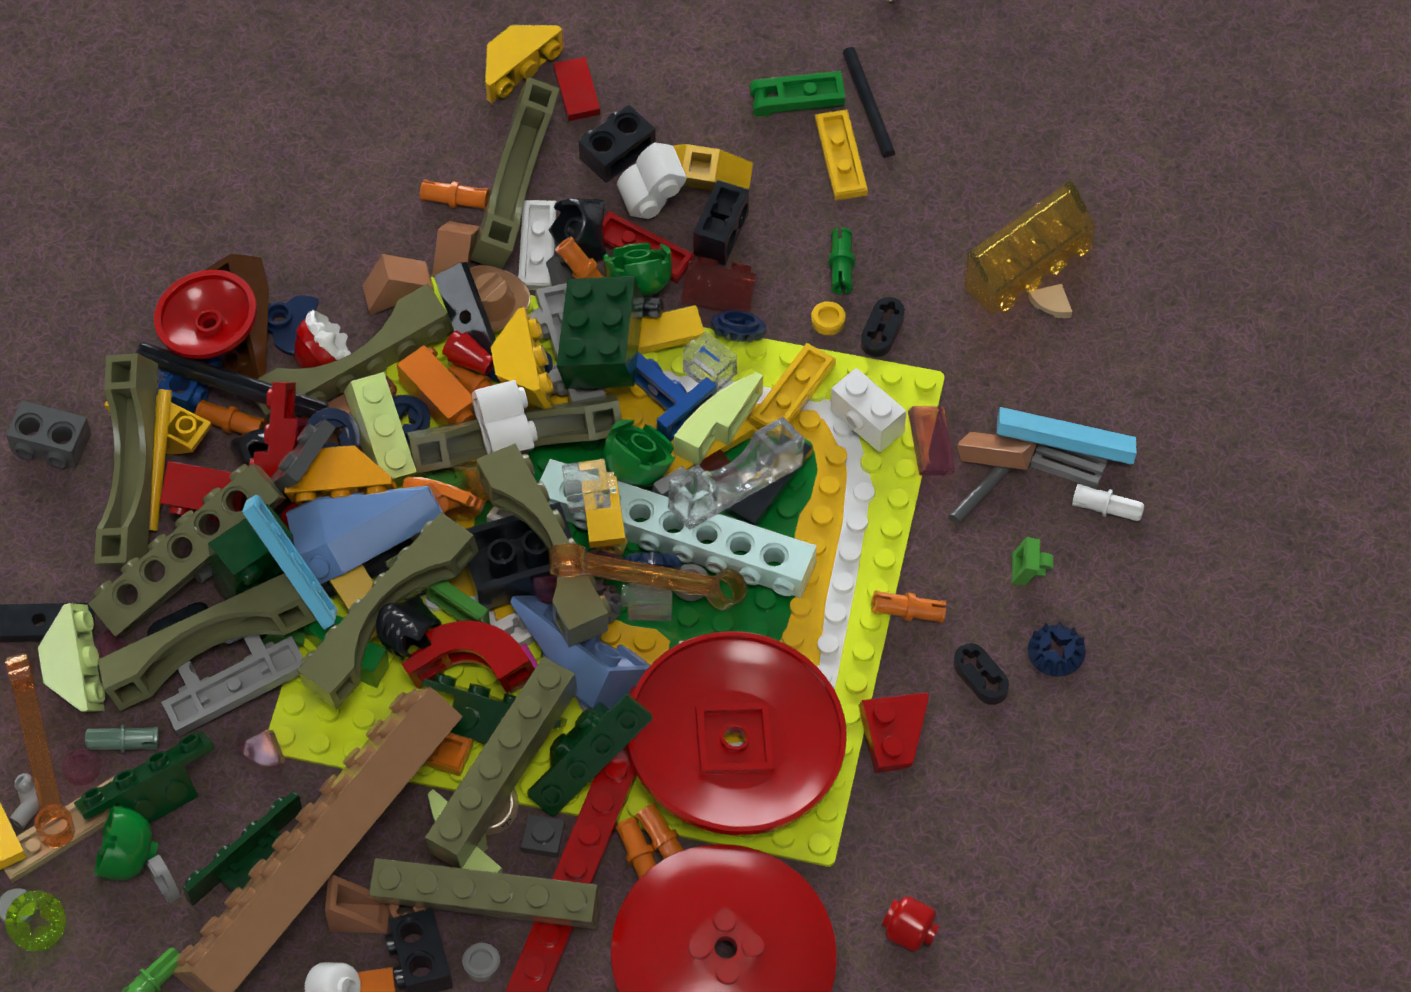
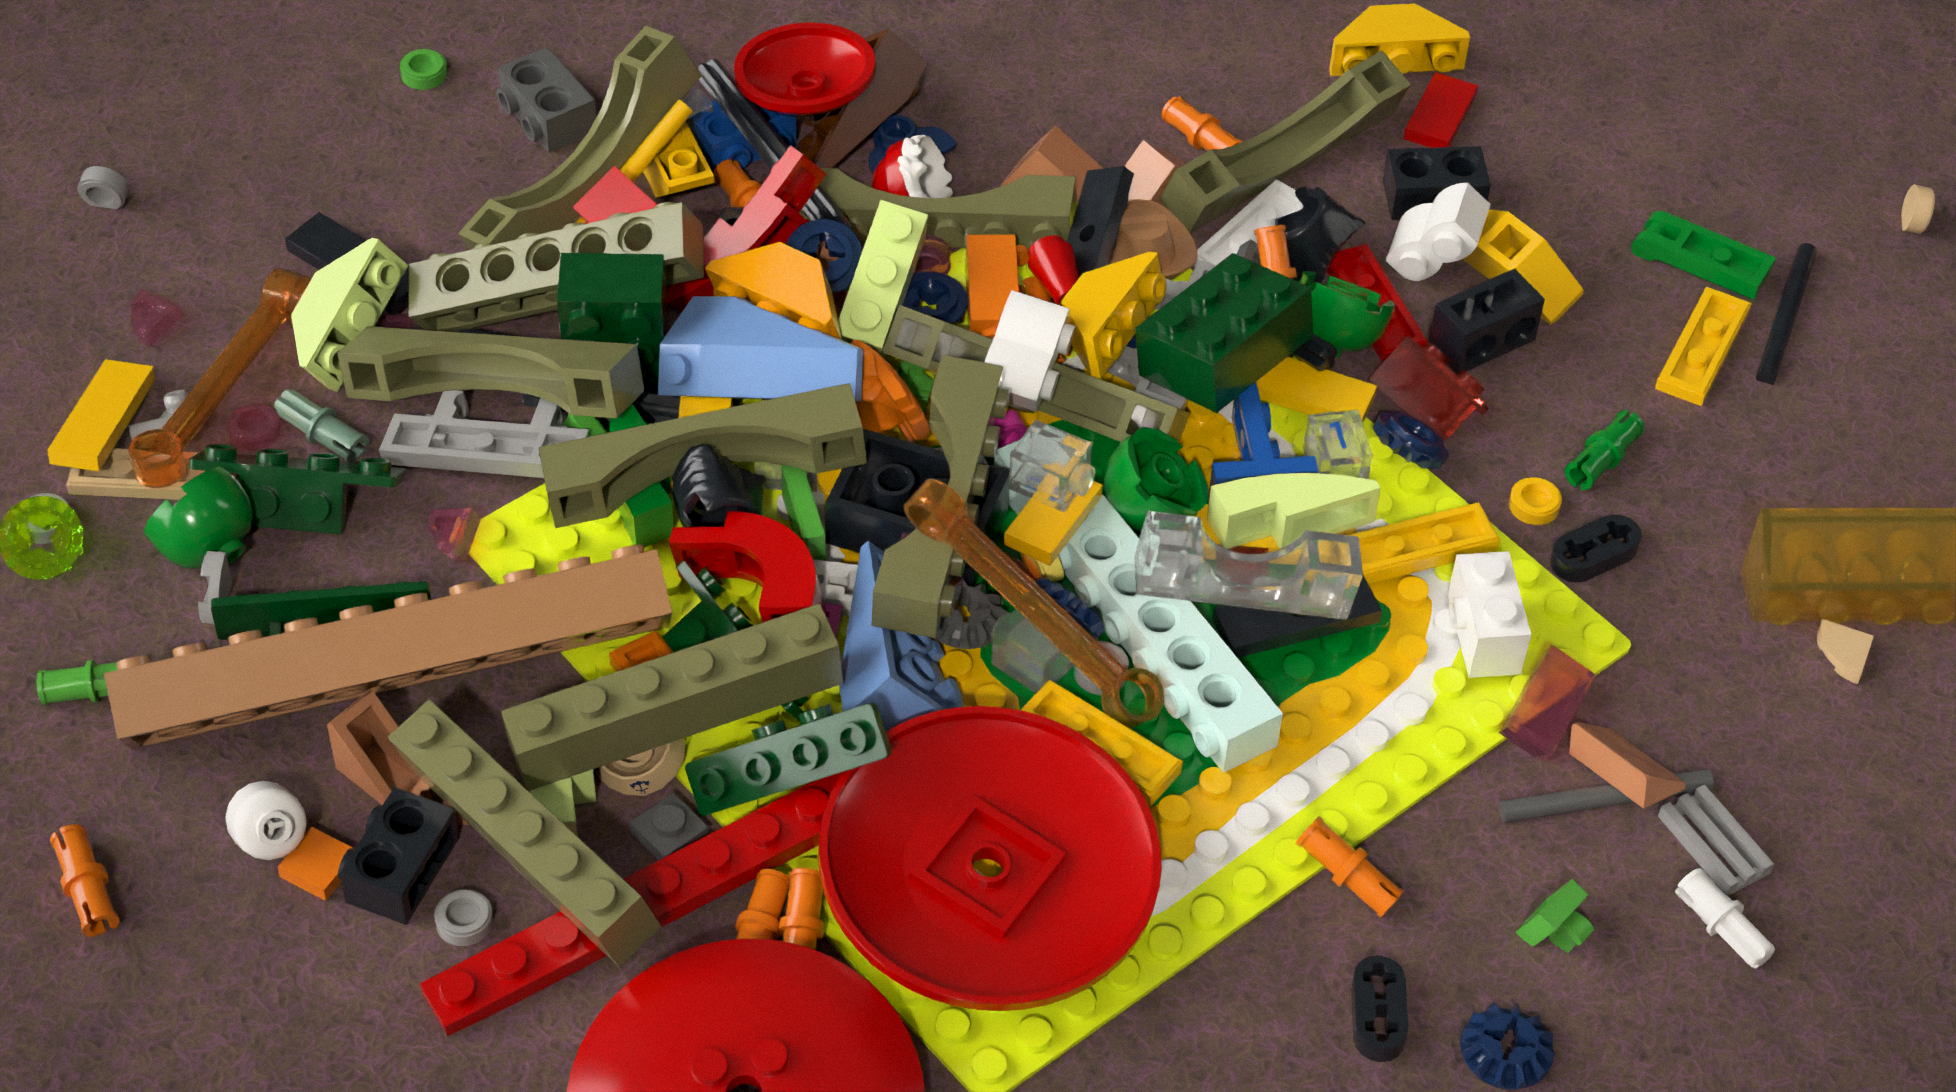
camera: 35 degrees right, 10 degrees down
(290, 561) = (628, 323): medium azure tile -> none
(297, 461) = (776, 226): dark grey wing -> none
(701, 621) = (1143, 761): none -> yellow tile
(893, 729) = (1206, 996): red wing -> none
(1066, 435) = (1731, 803): medium azure tile -> none

